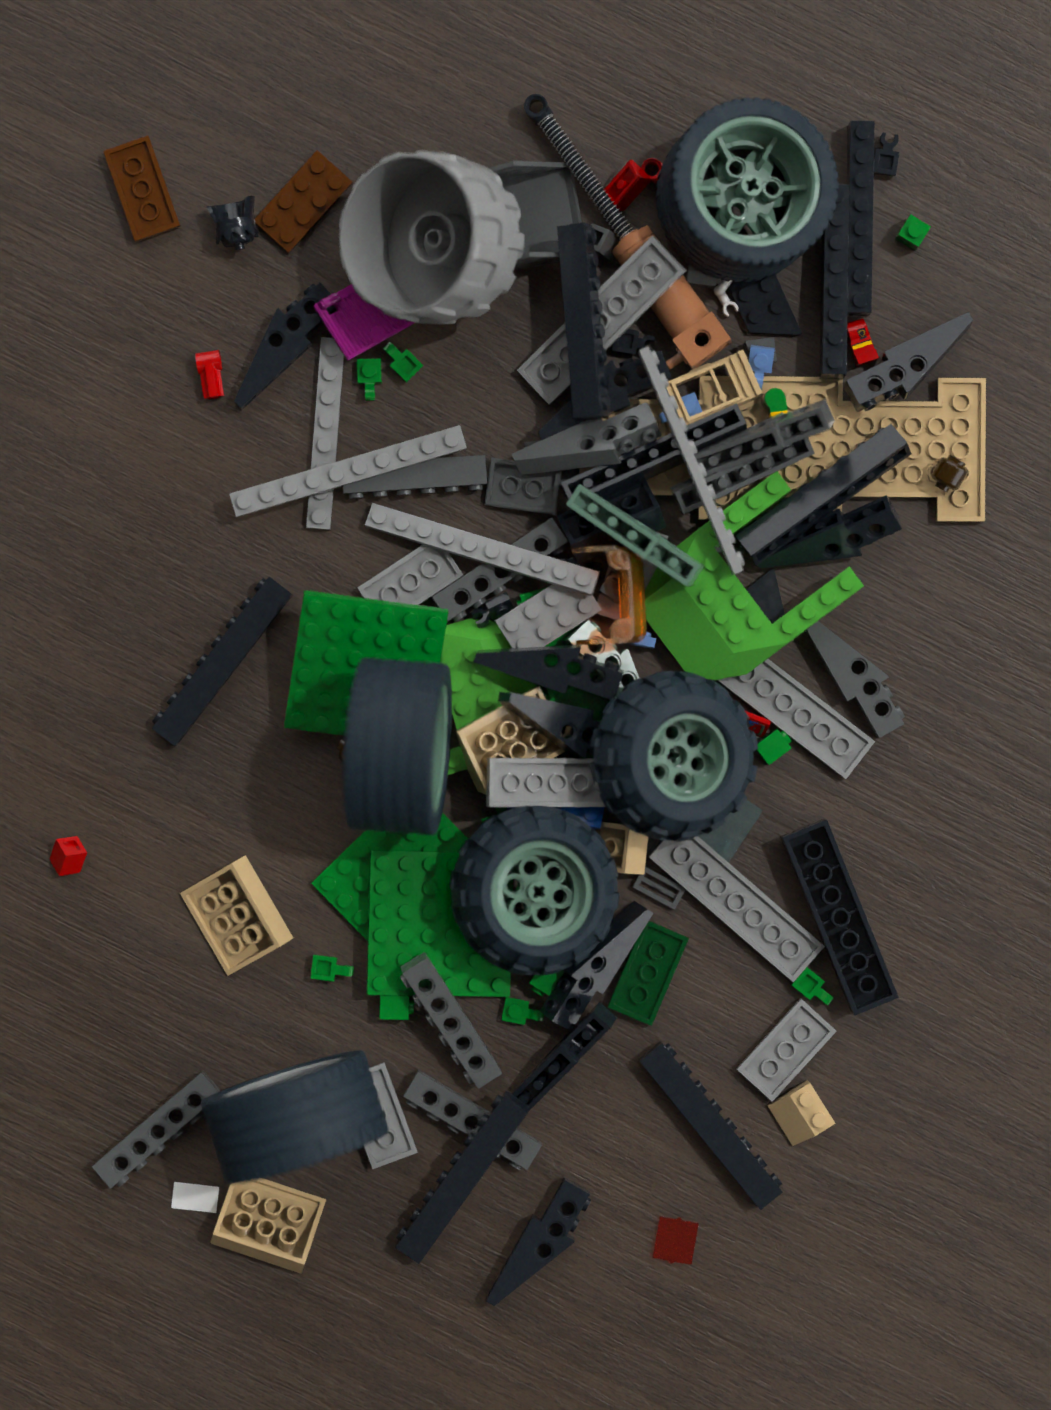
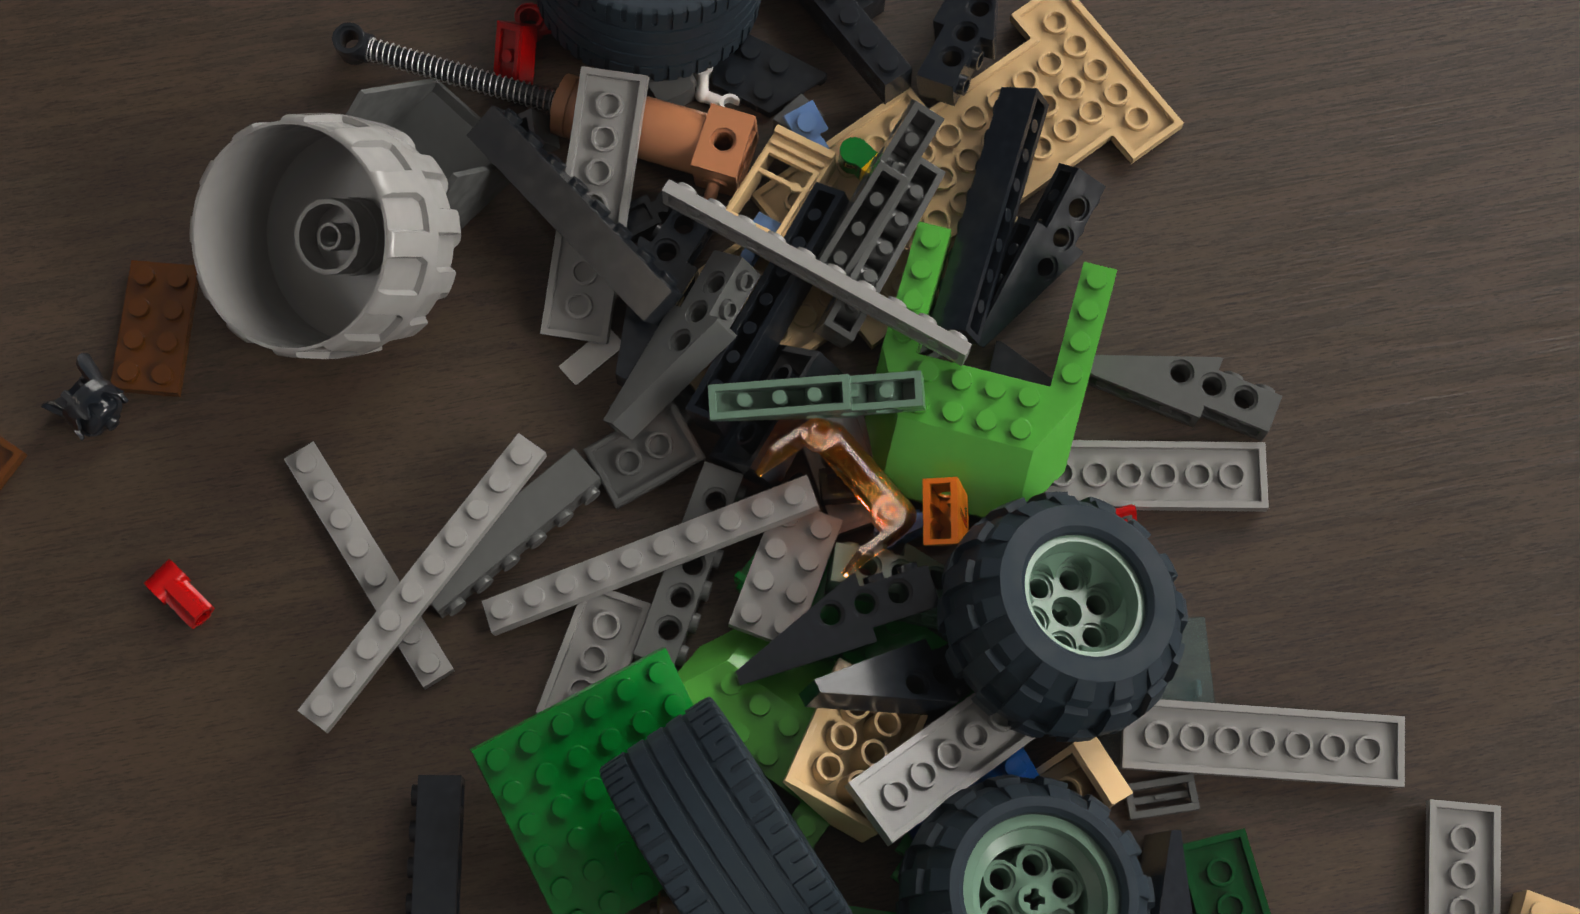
camera: 40 degrees left, 15 degrees down
(273, 361) = (245, 526): black brick -> none
(357, 323) = (315, 399): magenta window -> none
(369, 373) = (372, 461): green plate -> none
(404, 363) = (404, 418): green plate -> none
(494, 609) = (717, 616): black plate -> none
(534, 404) = (589, 358): none -> white sticker
(656, 651) = (944, 515): none -> orange torso
(773, 746) = (1163, 527): green brick -> none
(810, 984) = (1426, 777): green plate -> none
(839, 917) = (1395, 669): black brick -> none
(860, 343) = (907, 40): red leg -> none
(949, 473) = (1106, 95): dark brown head -> none

